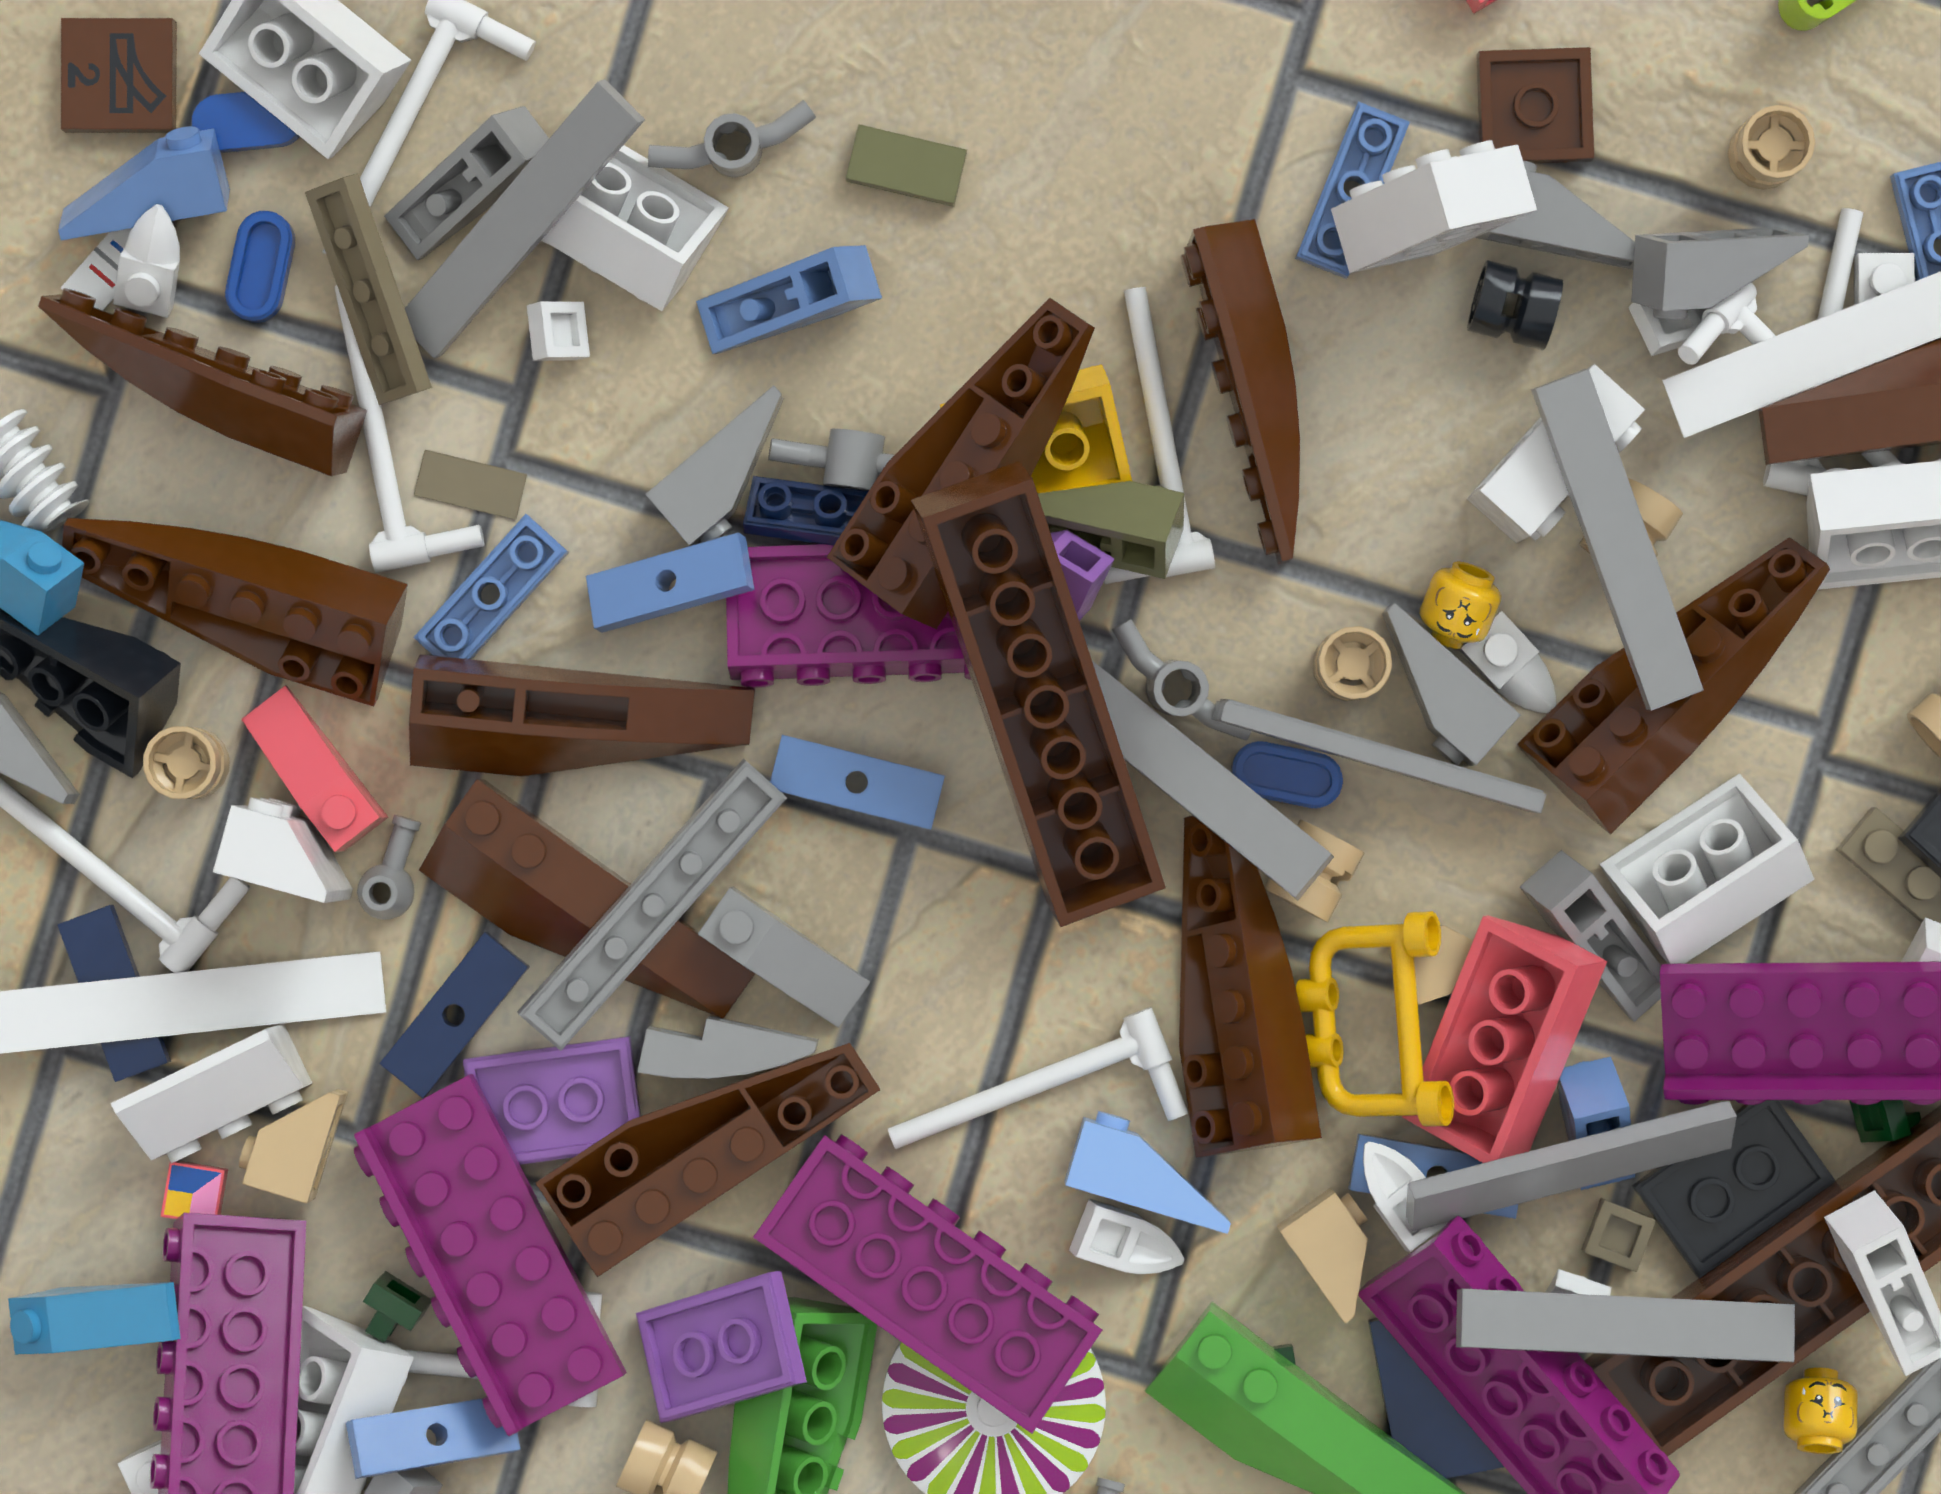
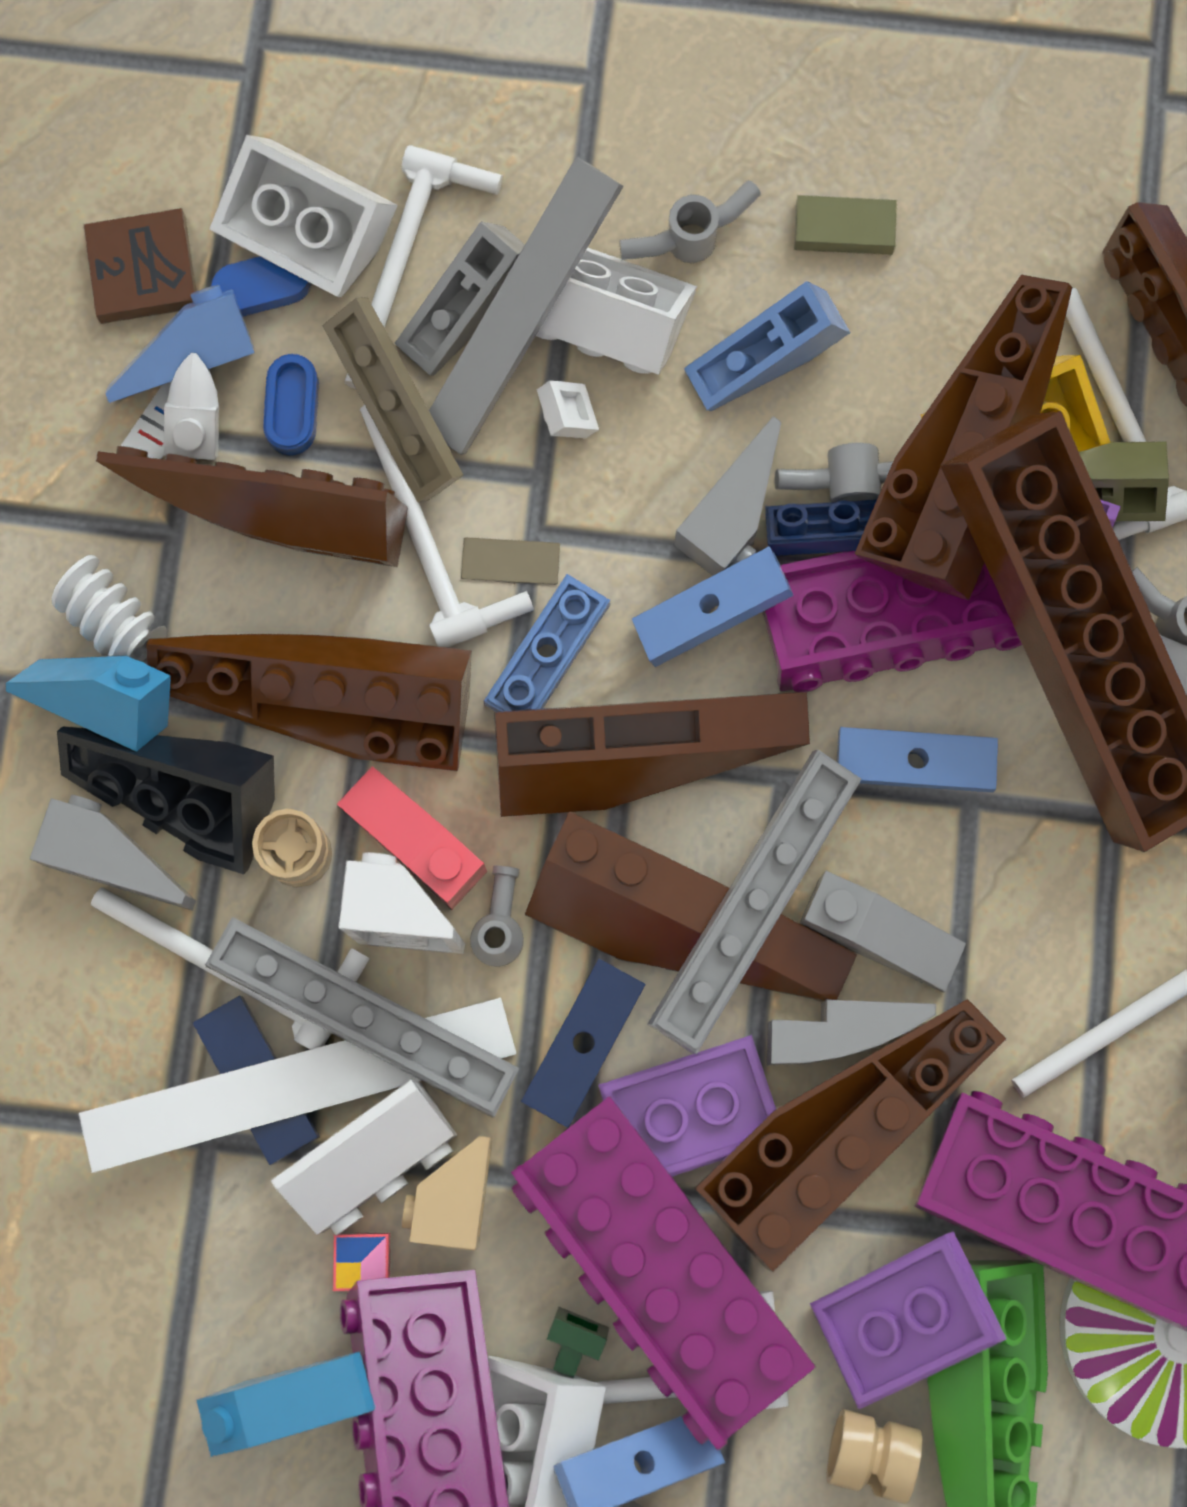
camera: 10 degrees left, 10 degrees down
(231, 949) = (362, 1017): none -> light grey tile

